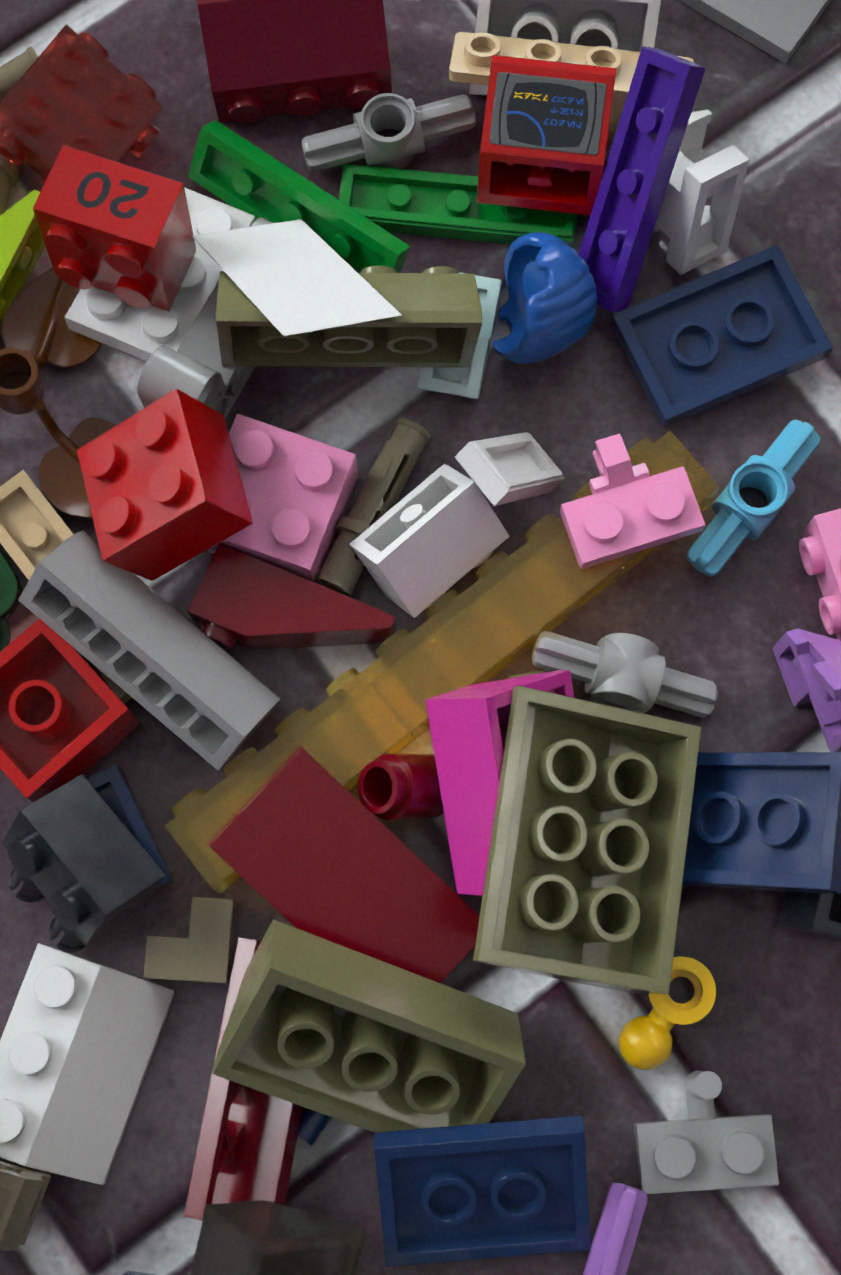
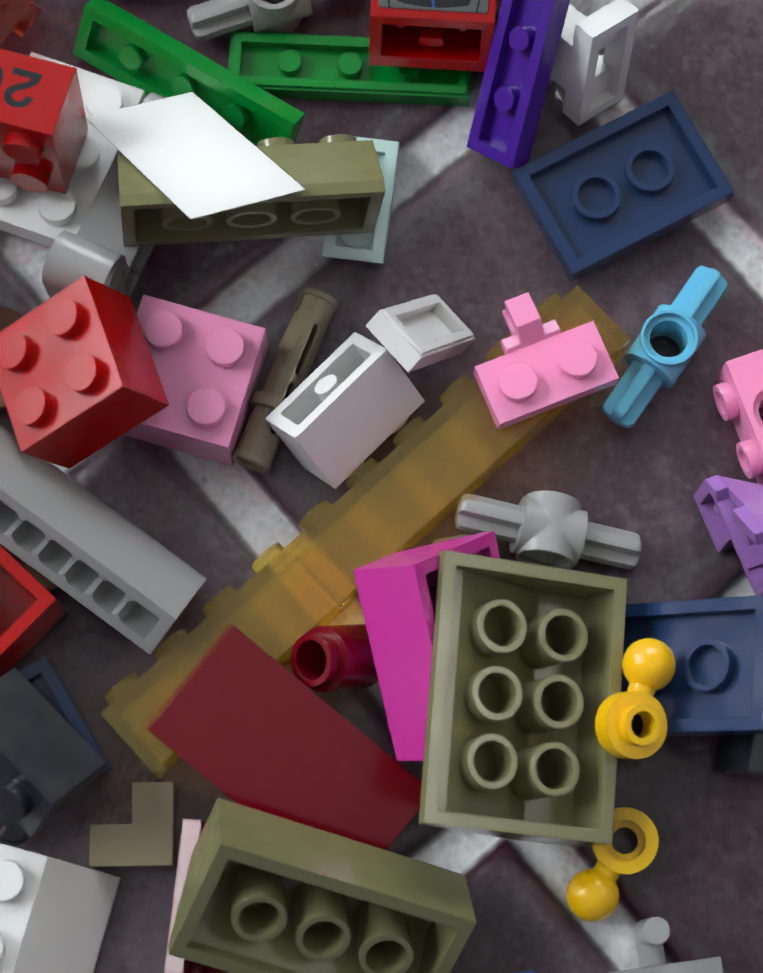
camera: 10 degrees left, 0 degrees up
(274, 609) = (193, 488): dark red slope -> none
(548, 299) = (447, 160): blue piece -> none
(716, 818) = (648, 668): none -> yellow plate

